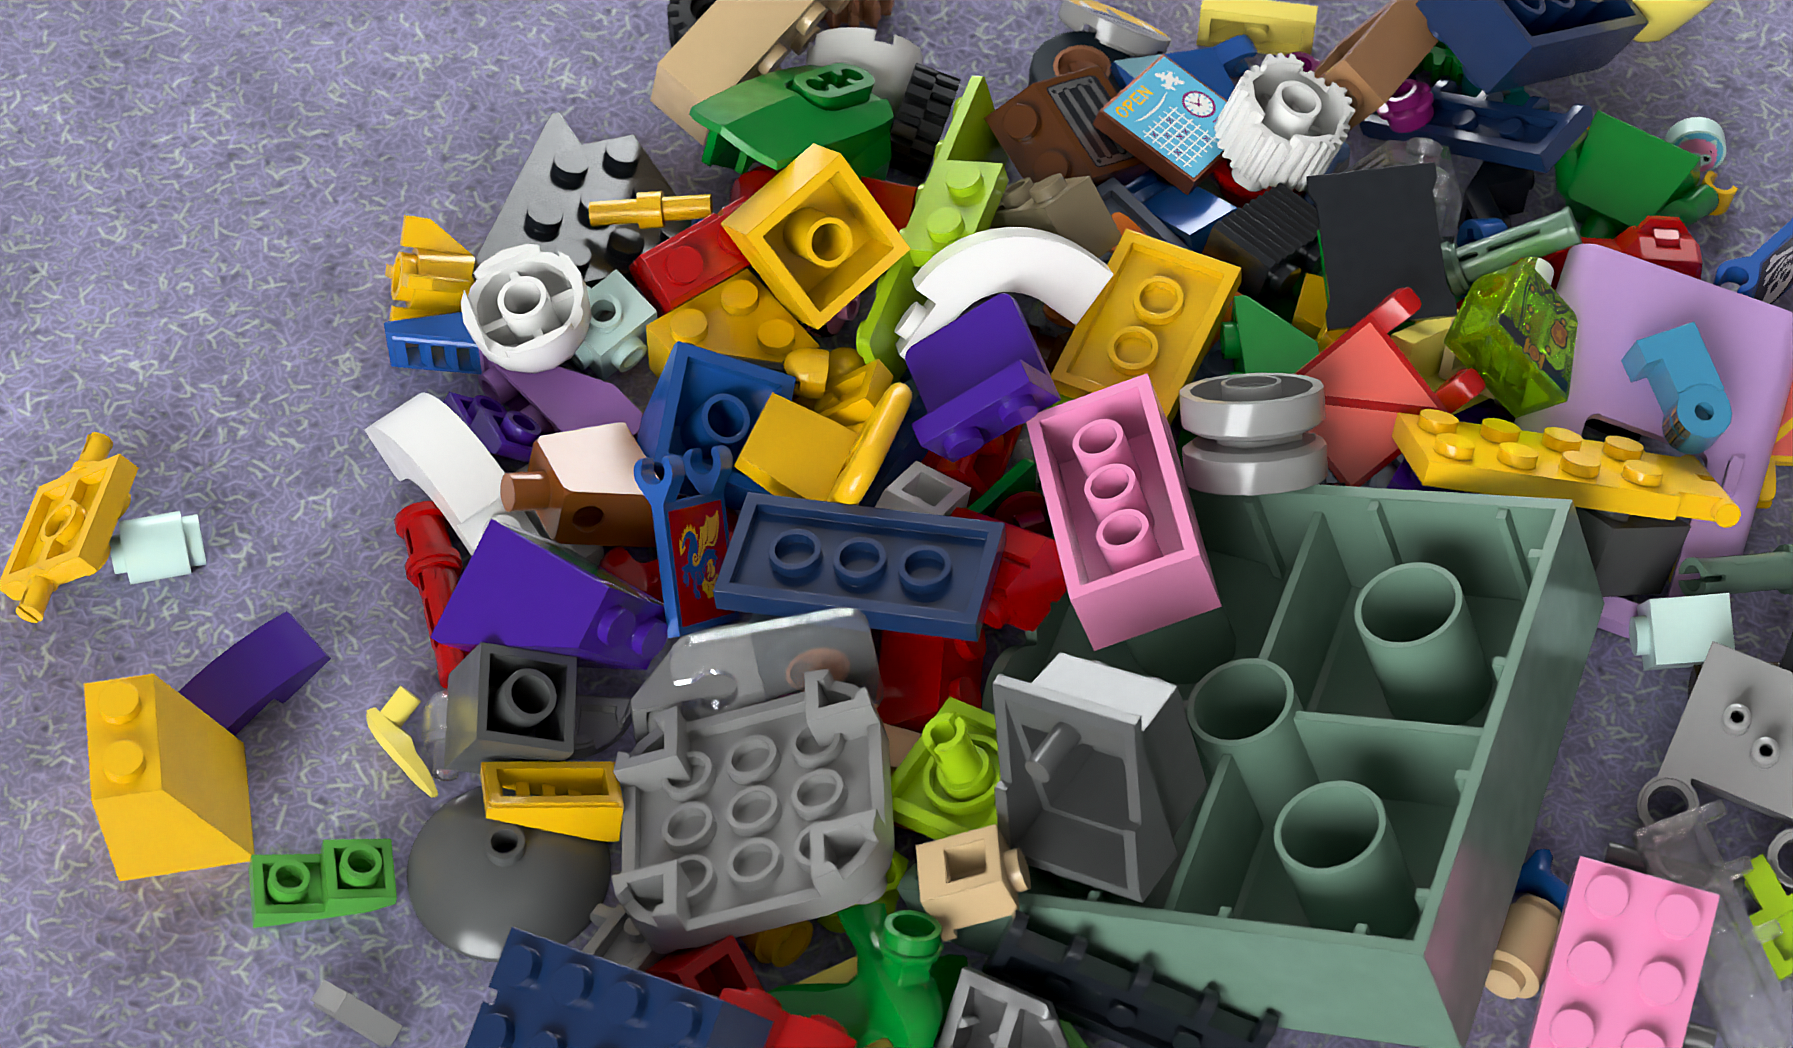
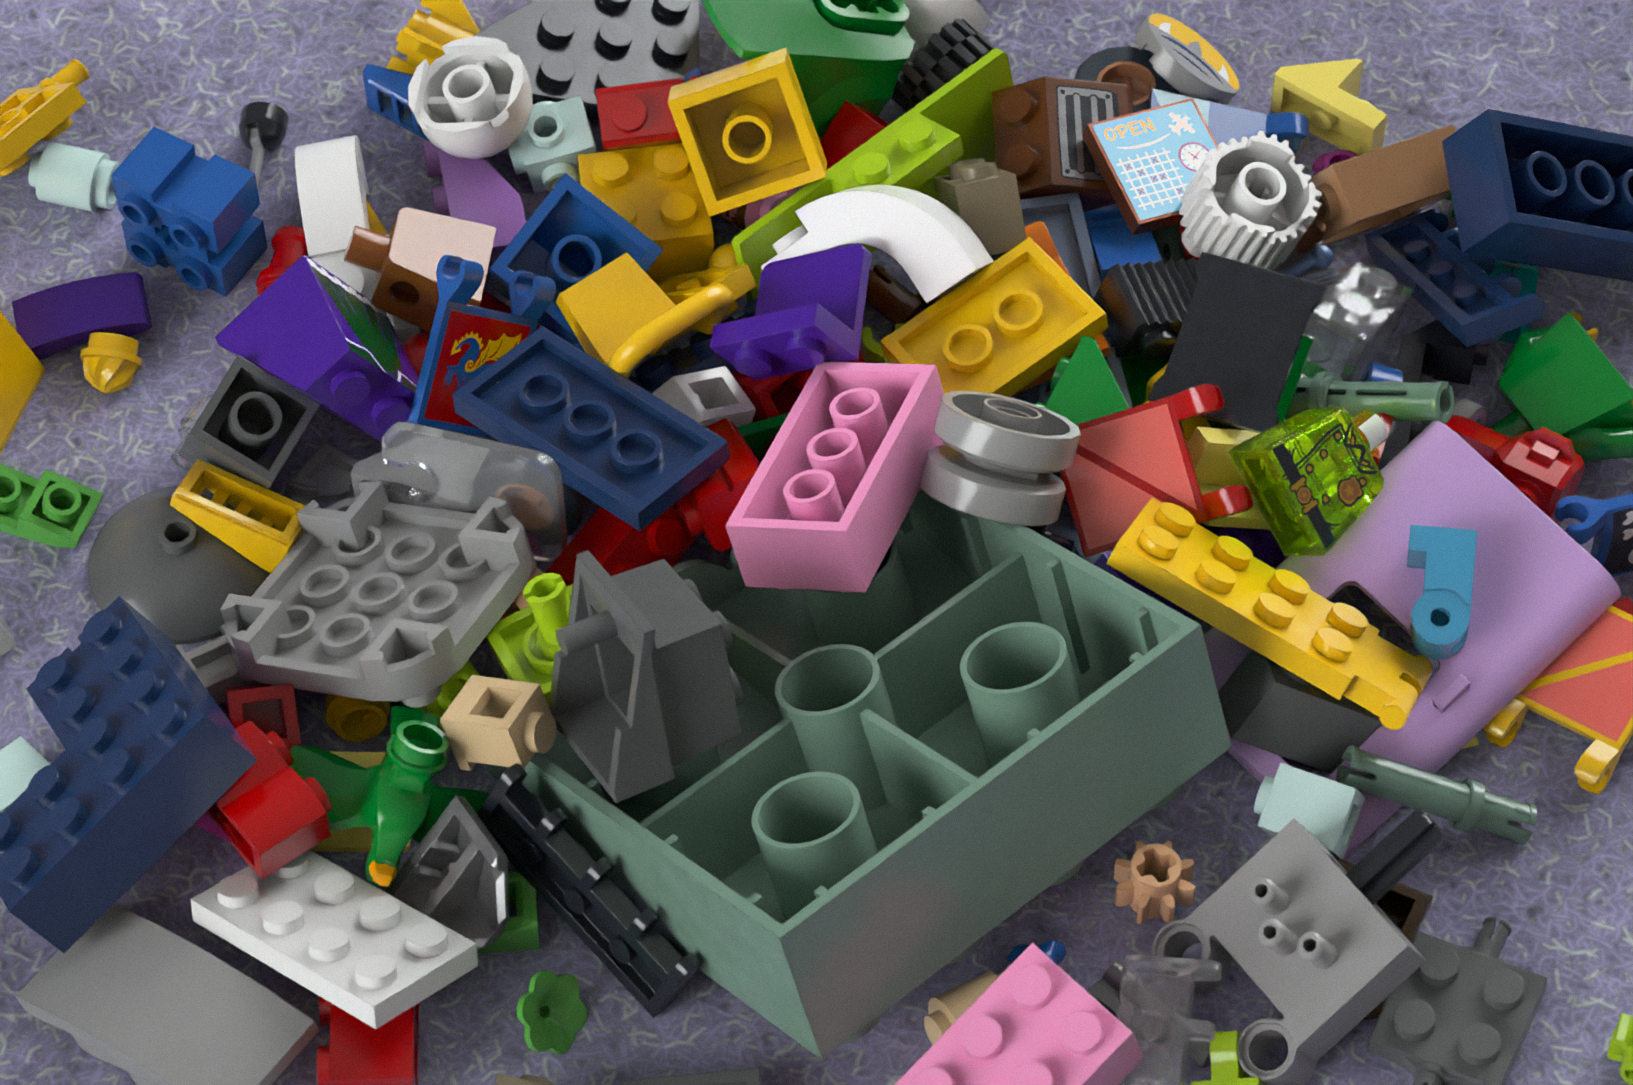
camera: 30 degrees right, 0 degrees up
(307, 531) = (189, 212): none -> blue brick
(309, 428) = (262, 130): none -> black hinge
(312, 709) = (110, 361): none -> yellow plate
(396, 741) = (162, 415): light yellow bar -> none
(500, 431) = (396, 184): dark purple slope -> none
(650, 209) = (644, 55): yellow bar -> none
(806, 364) = (681, 246): yellow hinge -> none
(1408, 107) = (1400, 237): magenta plate -> none
(1590, 758) = (1154, 882): none -> light nougat gear

